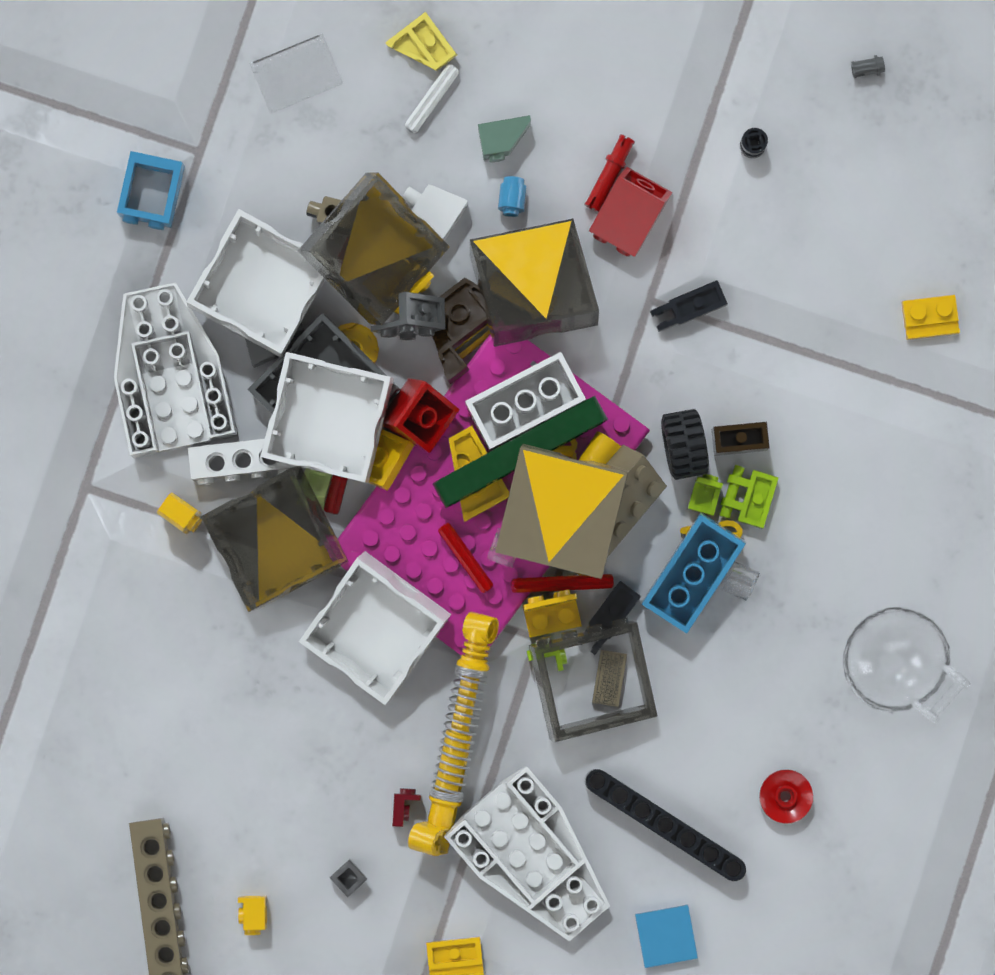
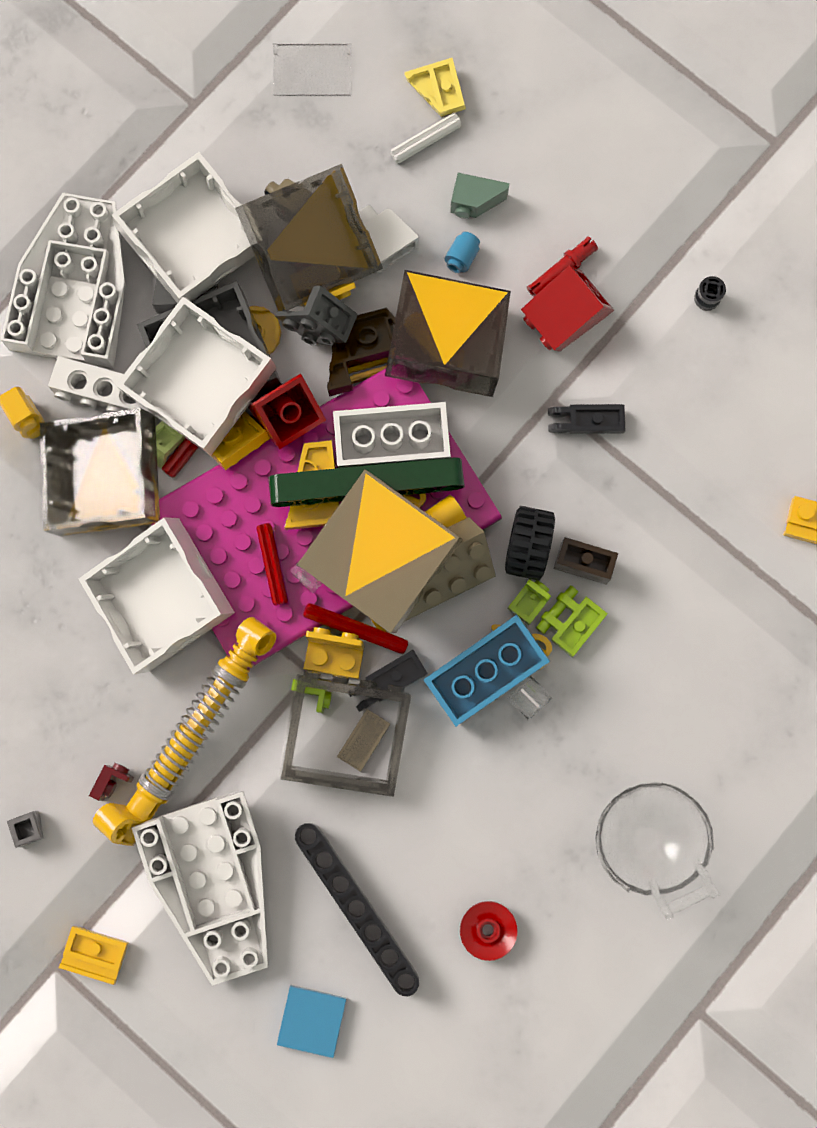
camera: 25 degrees right, 5 degrees down
(157, 164) = (148, 95): dark azure window -> none

